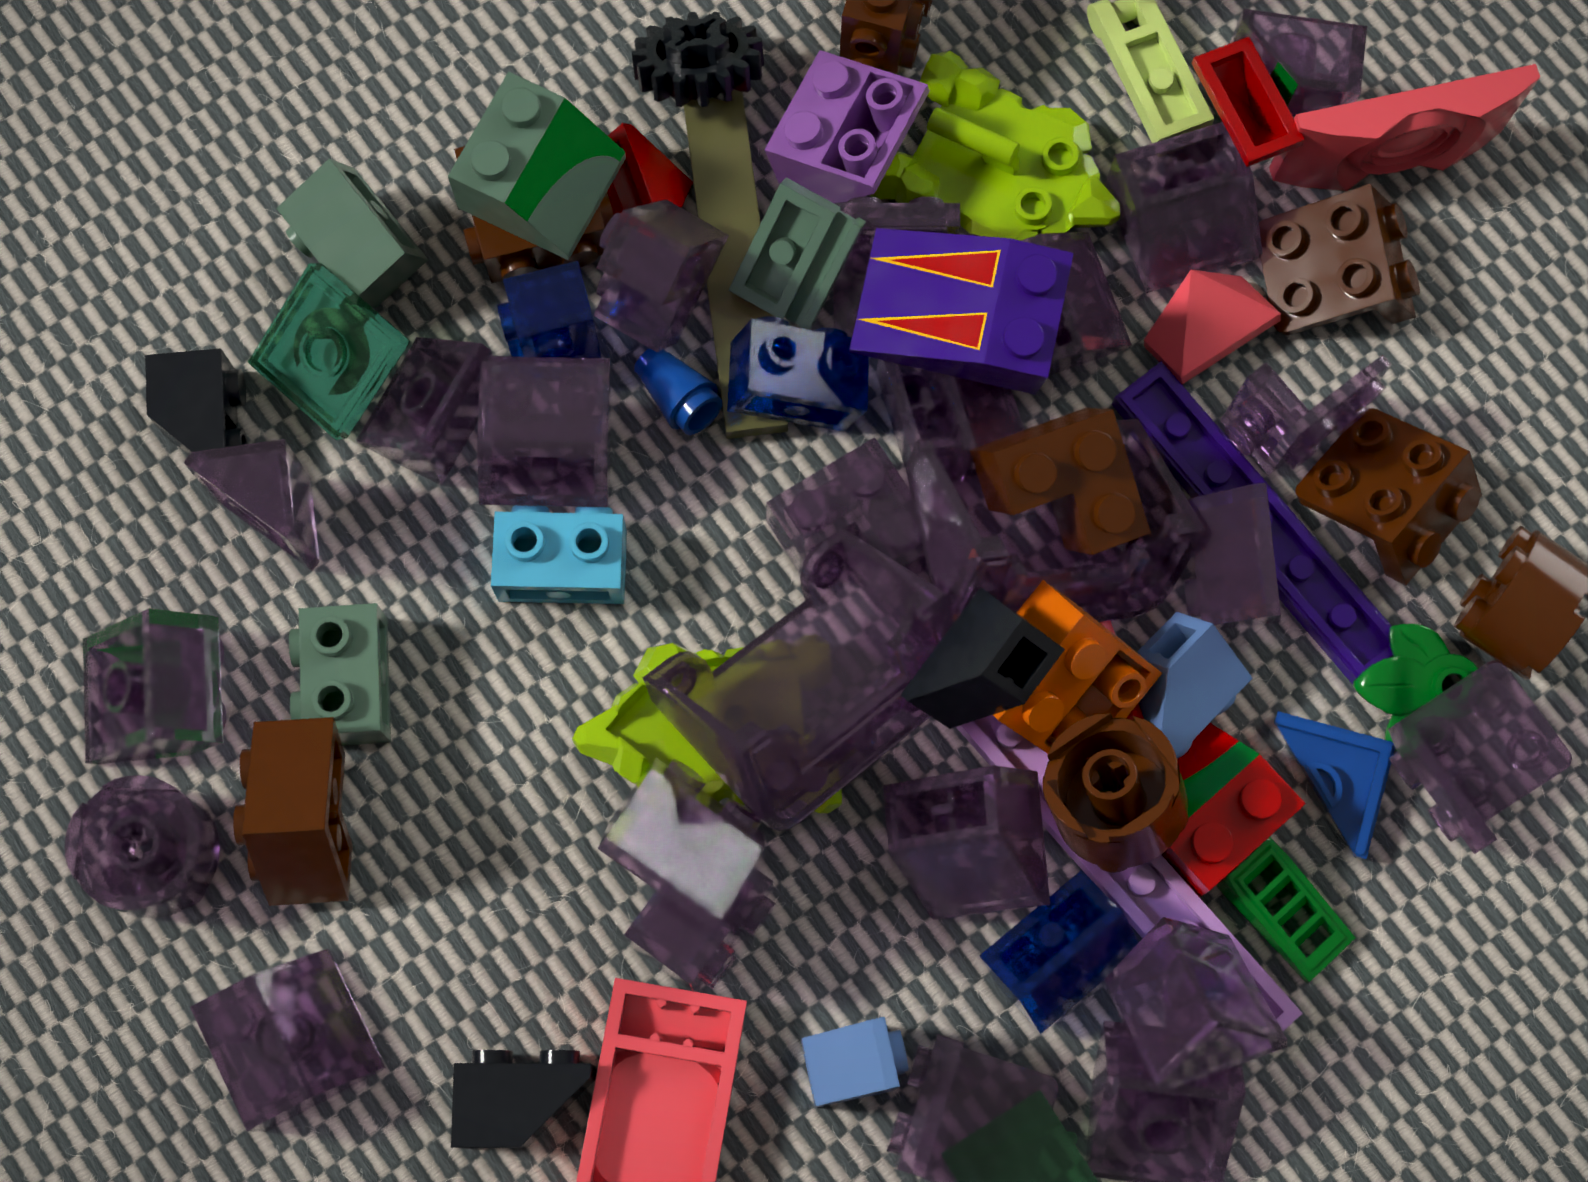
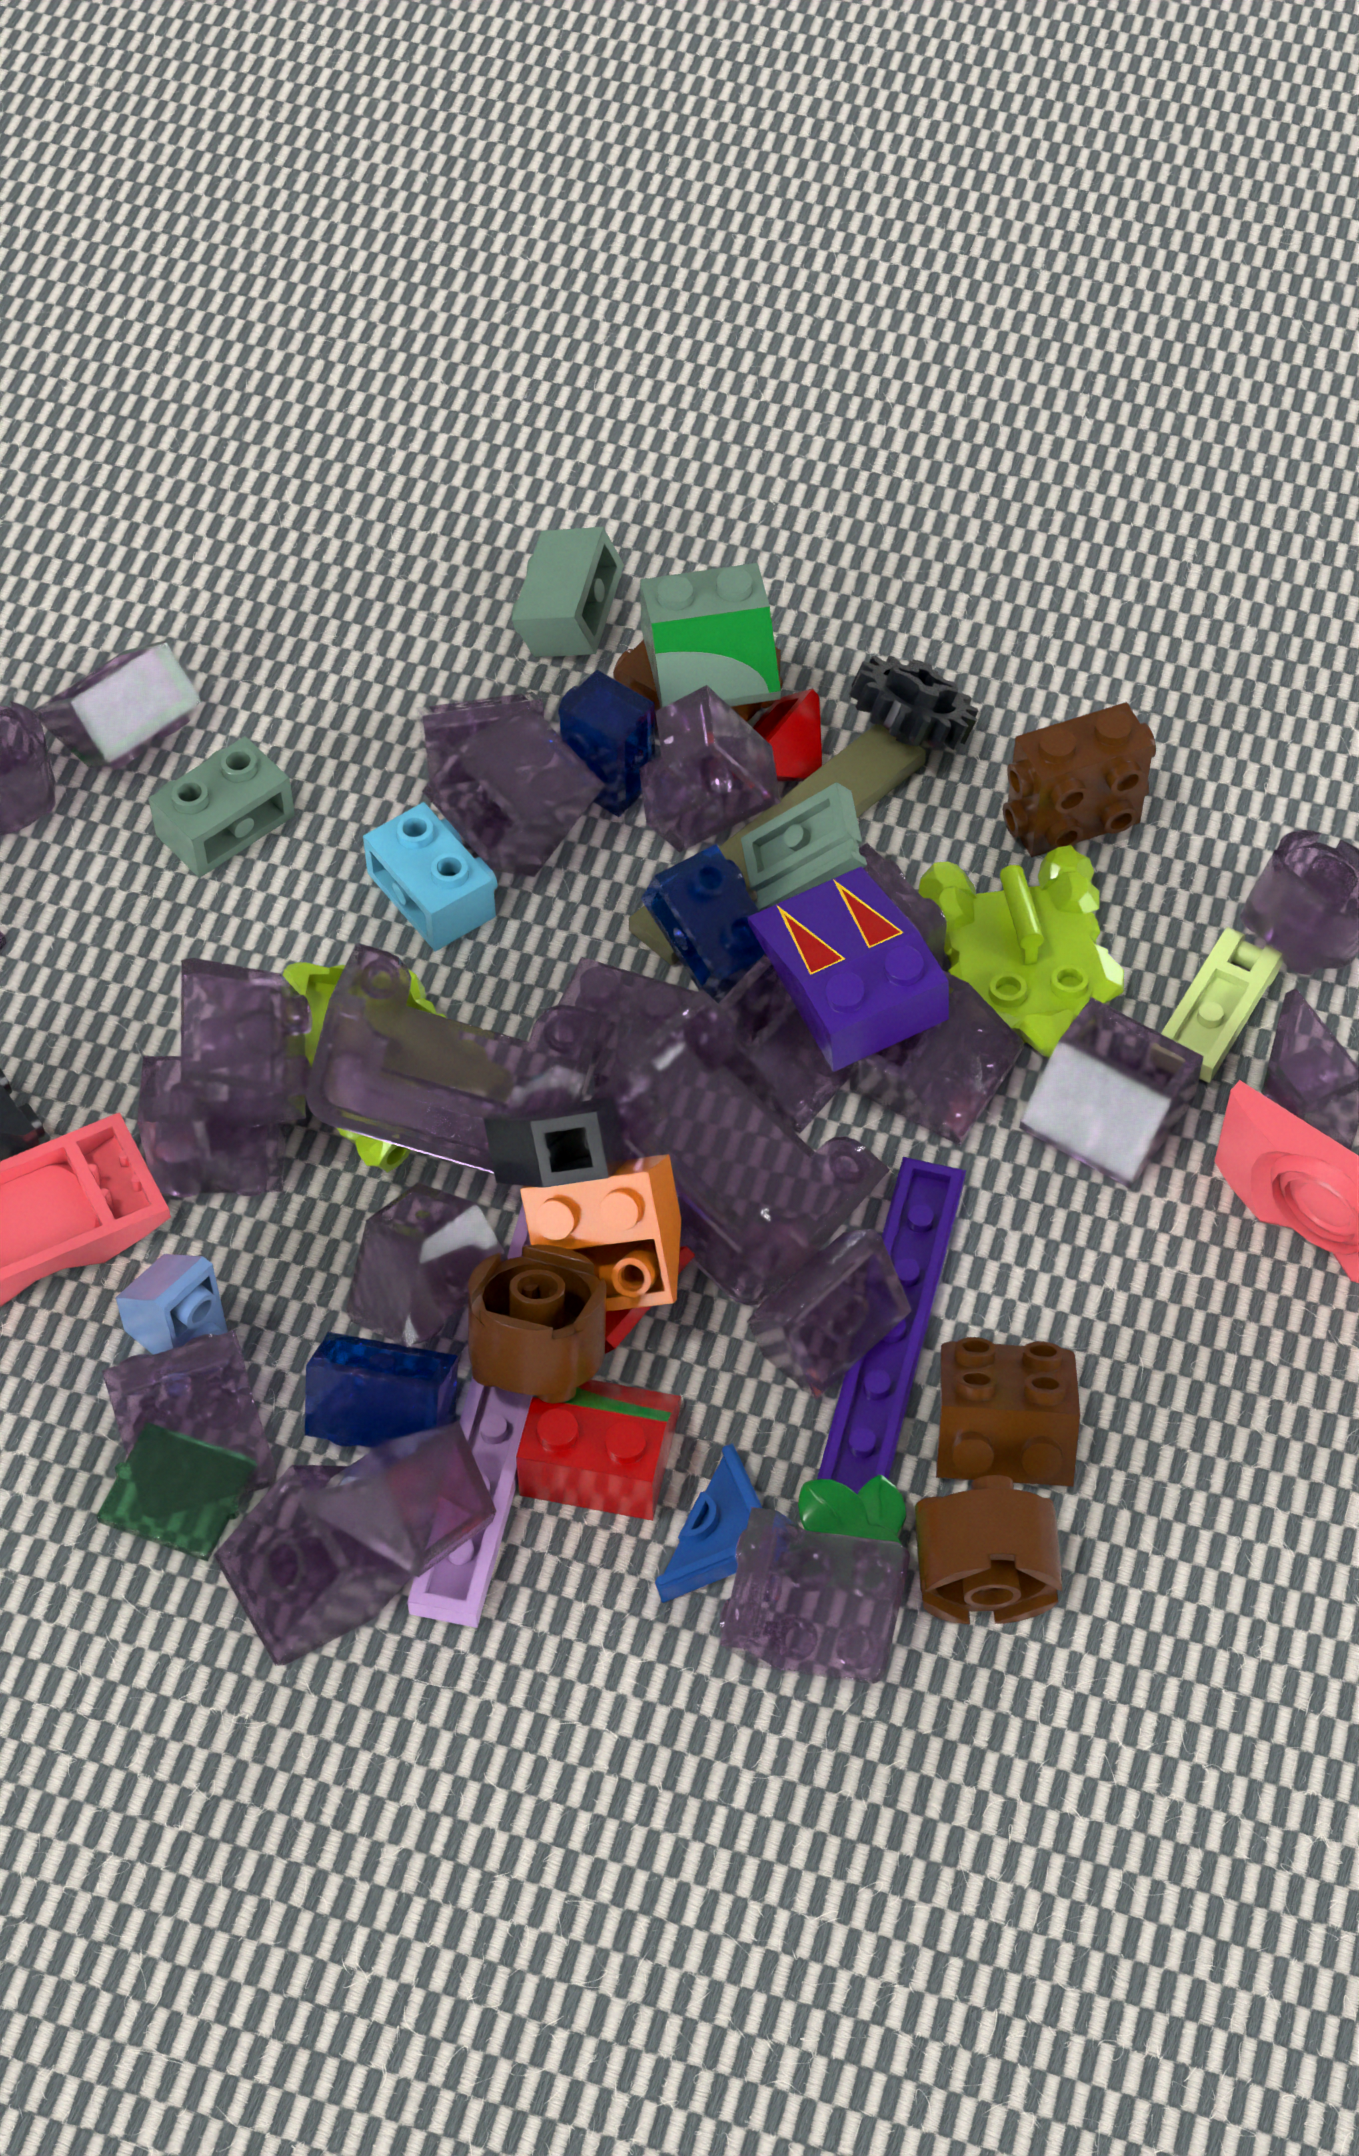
camera: 55 degrees right, 20 degrees down
(195, 399) = (353, 597): black slope -> none
(264, 489) = (318, 665): clear purple slope -> none
(294, 812) = (80, 823): reddish brown brick -> none
(328, 351) = (464, 637): clear green tile -> none
(679, 391) = (632, 867): blue cone -> none
(844, 127) = (942, 816): medium lavender slope -> none
(1078, 468) = (792, 1125): reddish brown brick -> none
(1196, 679) = (686, 1344): medium blue slope -> none
(1207, 322) = (1034, 1177): coral slope -> none
(1247, 101) = (1223, 1048): red slope -> none
(1277, 426) = (1004, 1289): clear purple bracket -> none
(1304, 894) = (573, 1513): green slope -> none
(1338, 261) = (1187, 1238): reddish brown bracket -> none

